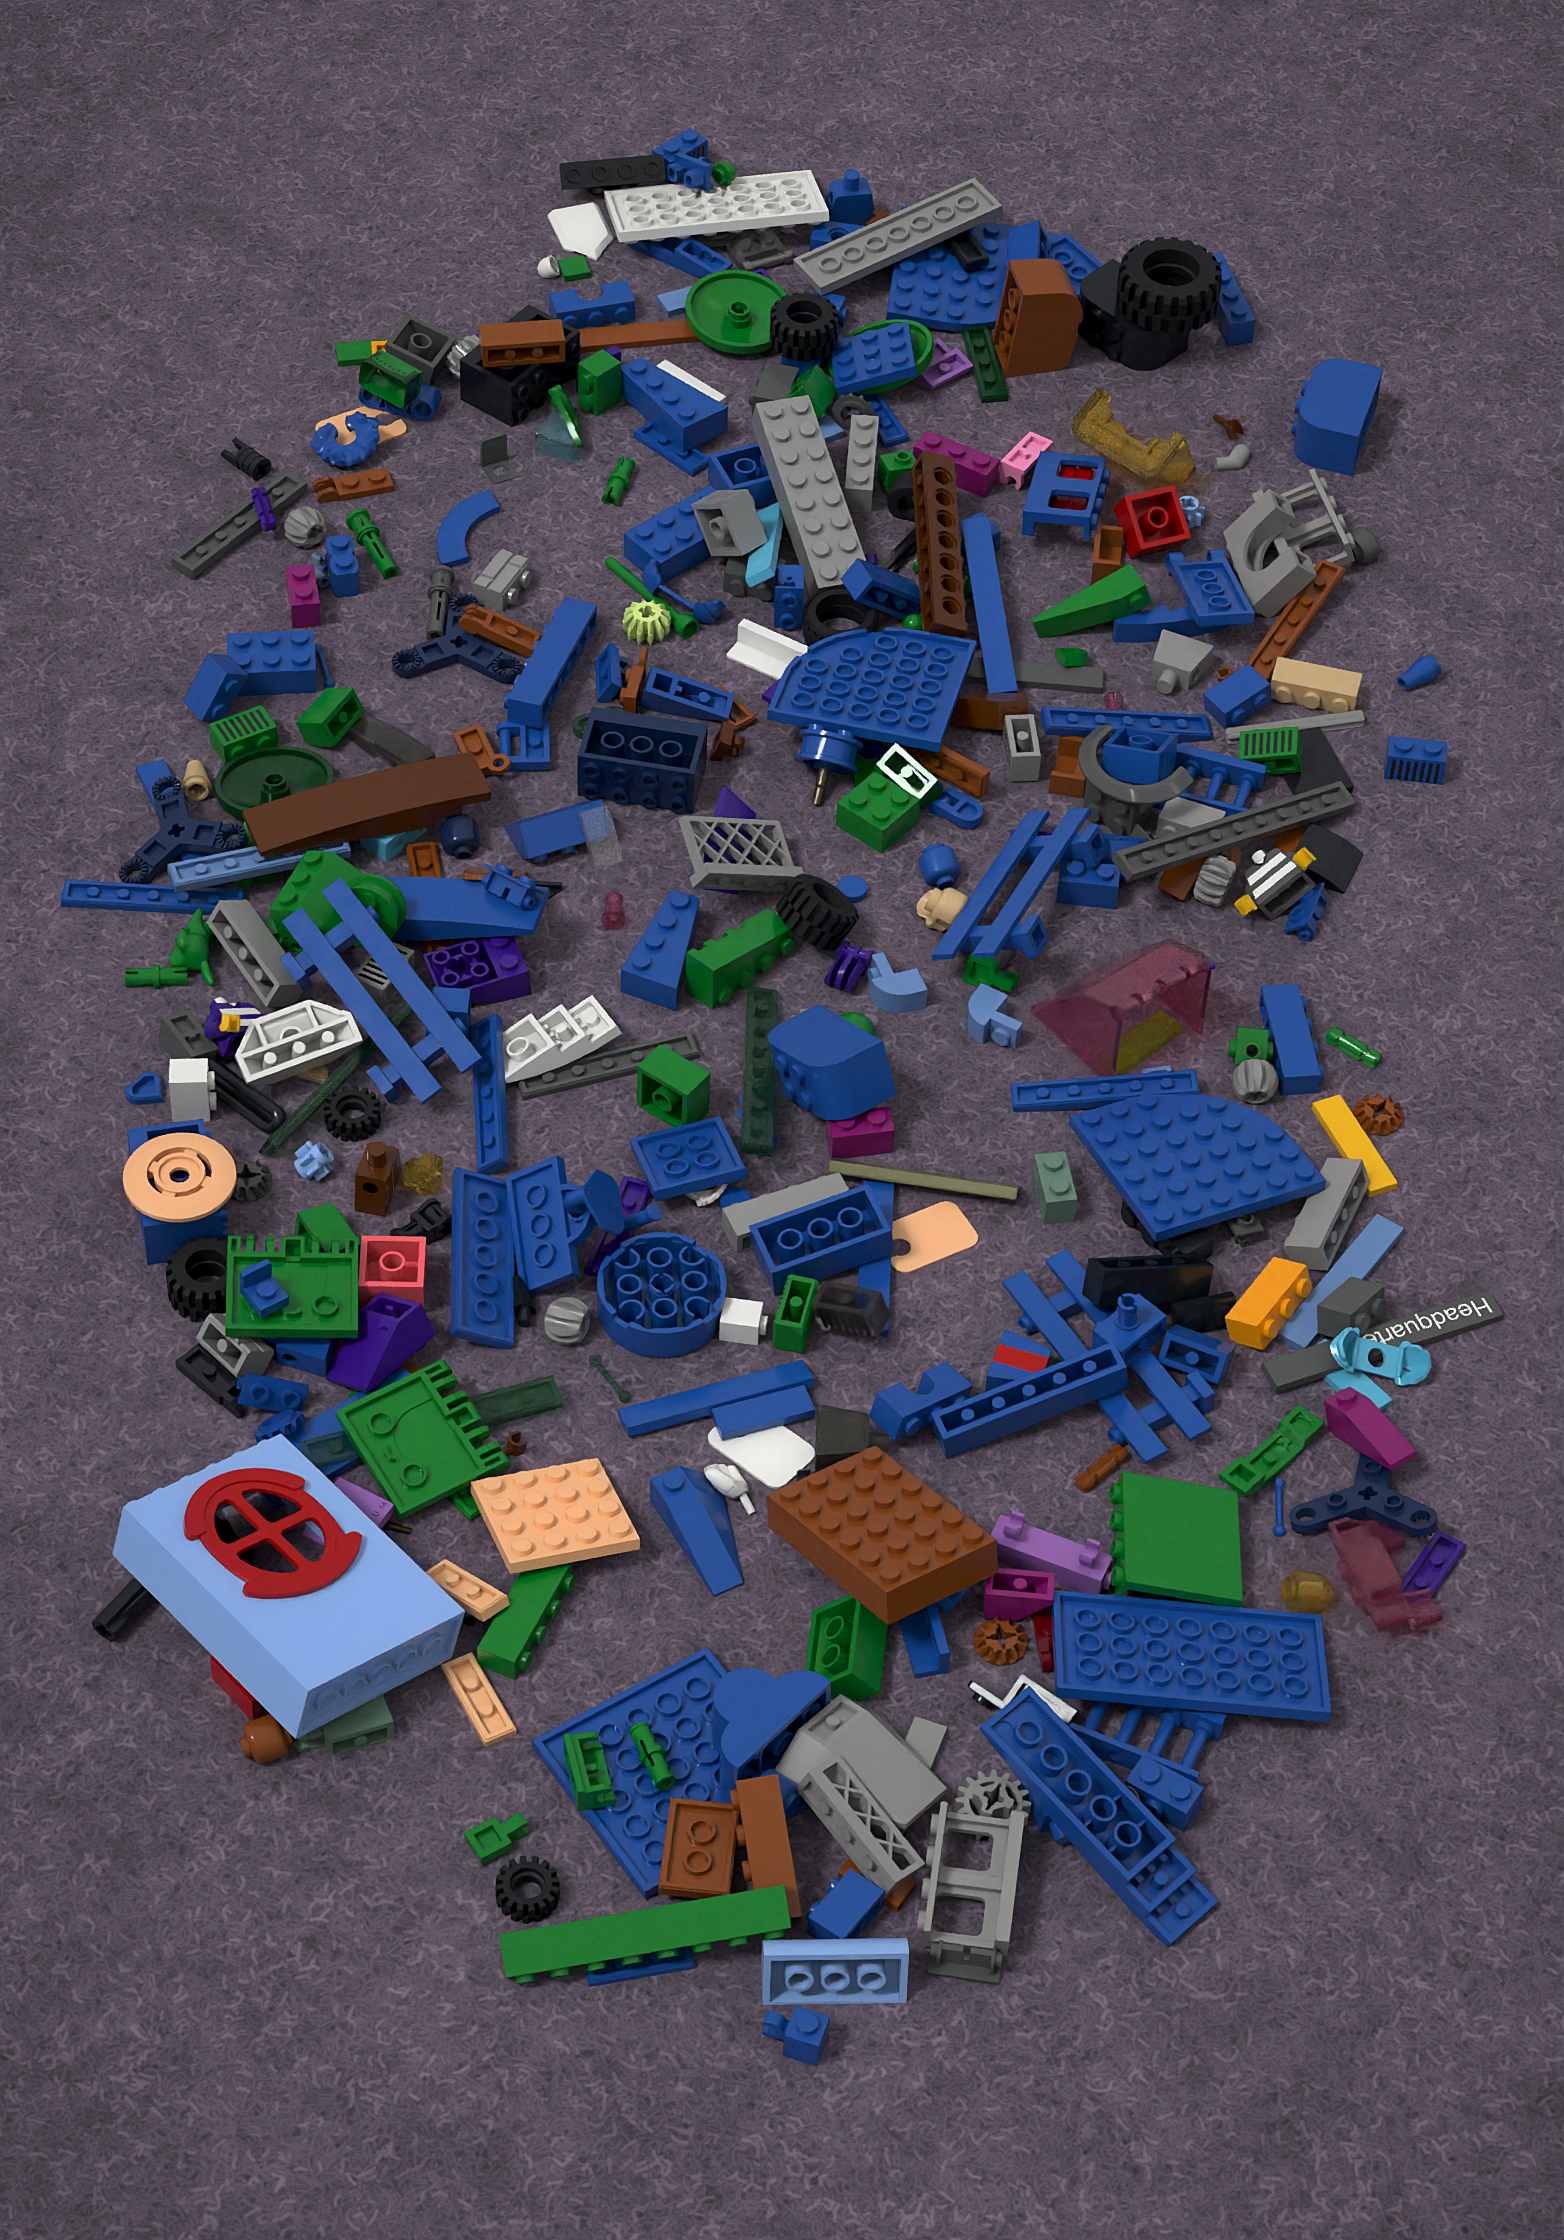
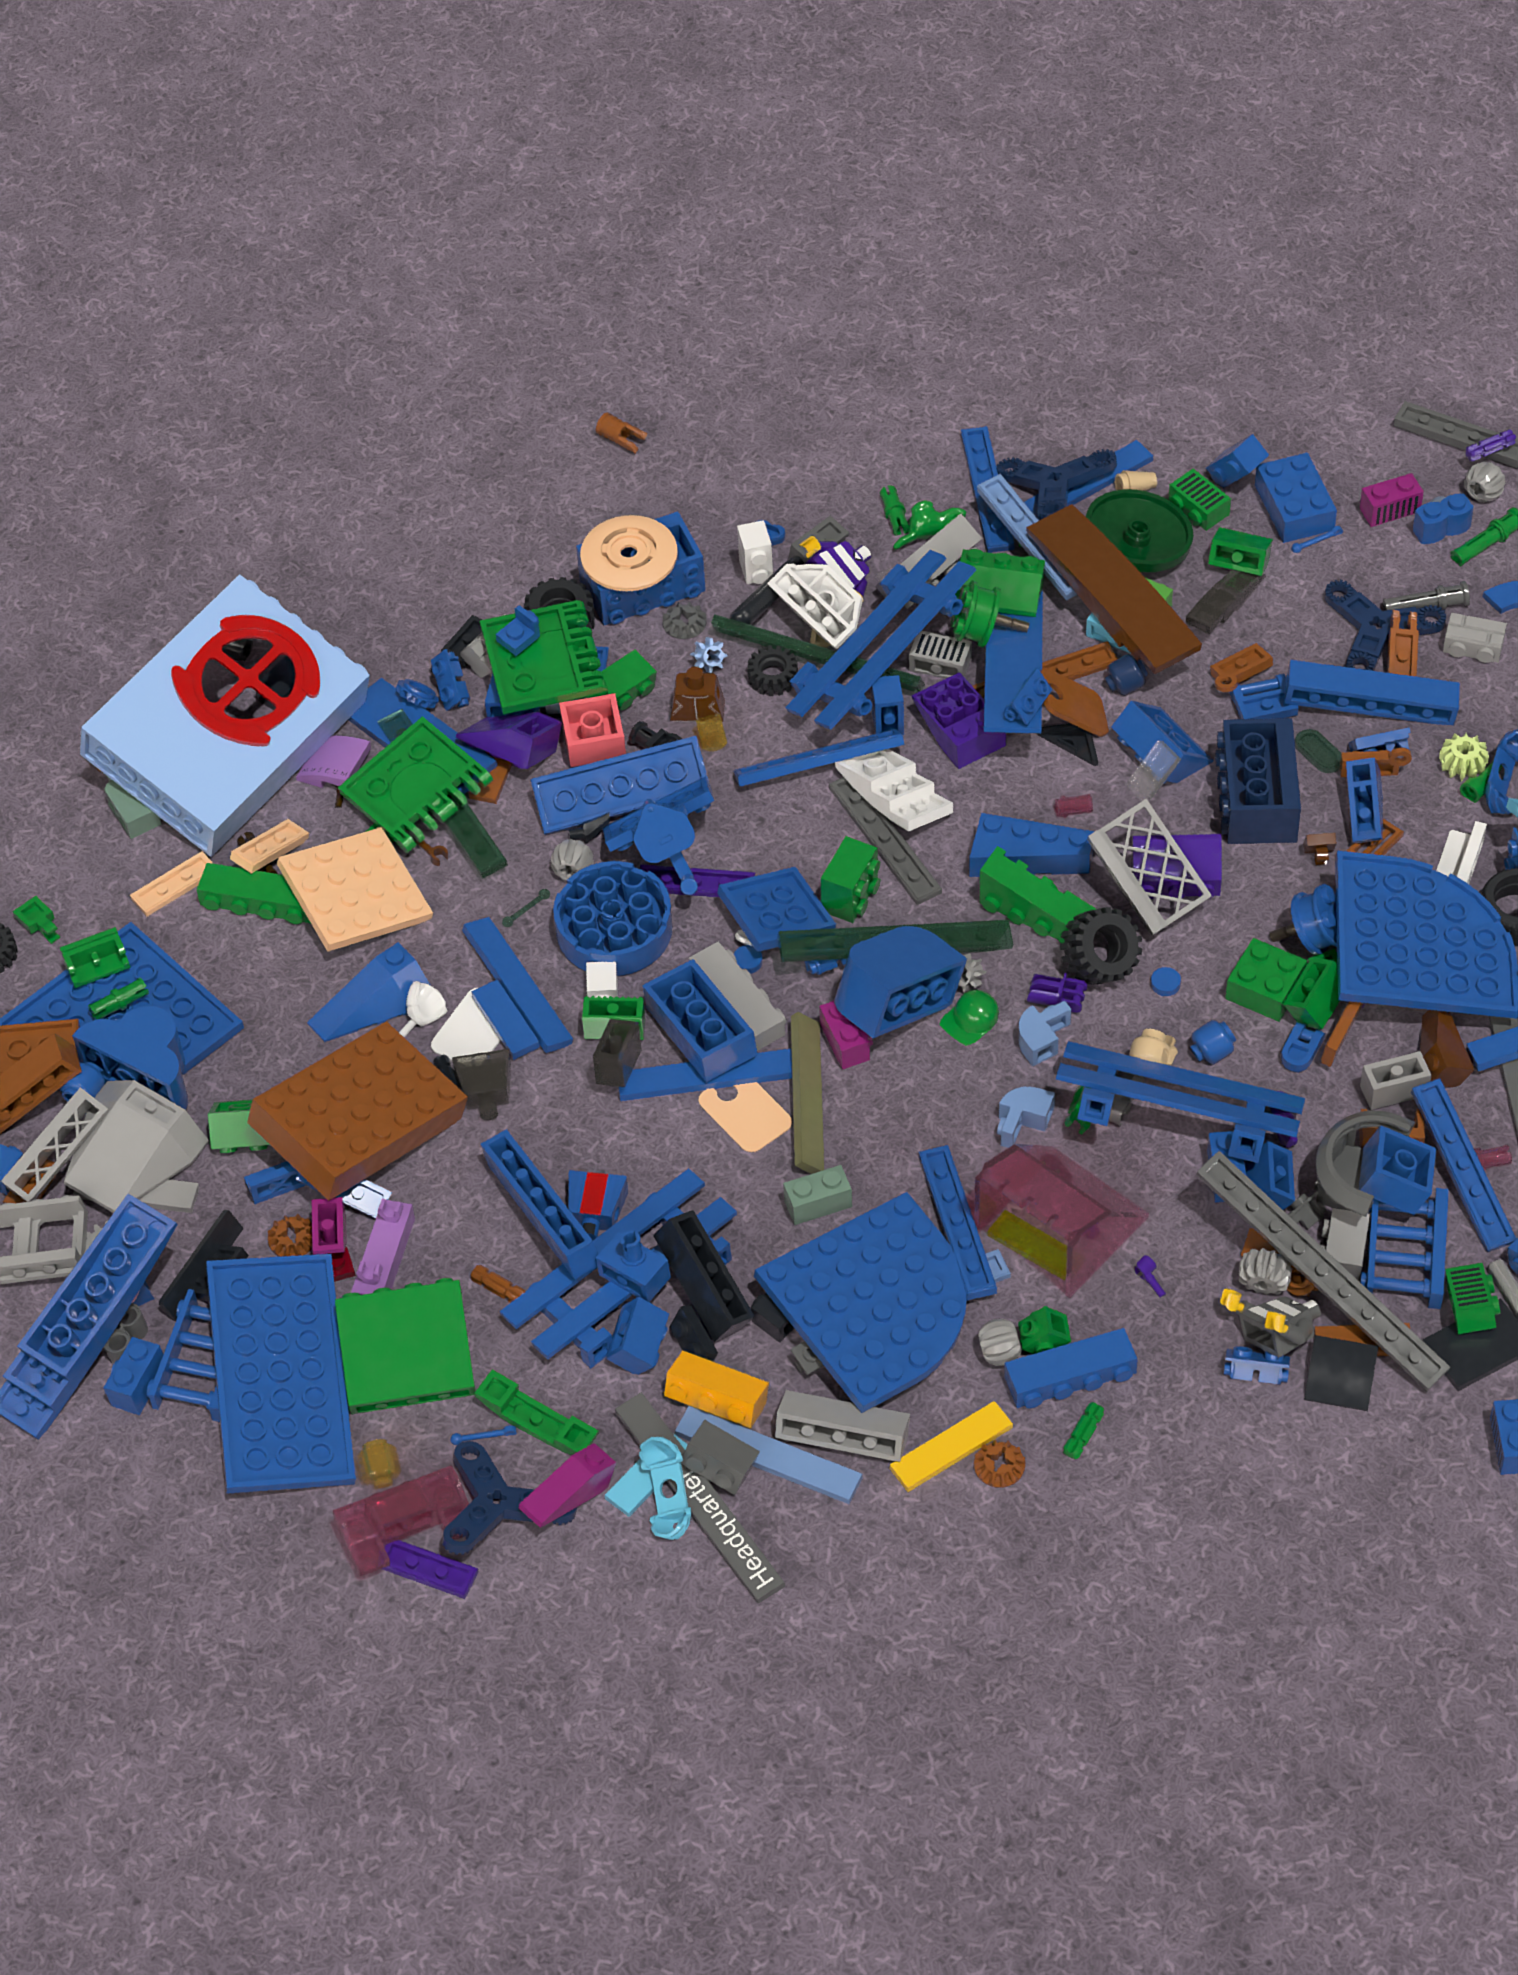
camera: 85 degrees right, 5 degrees up
(905, 1412) = (546, 1145): blue arch -> none

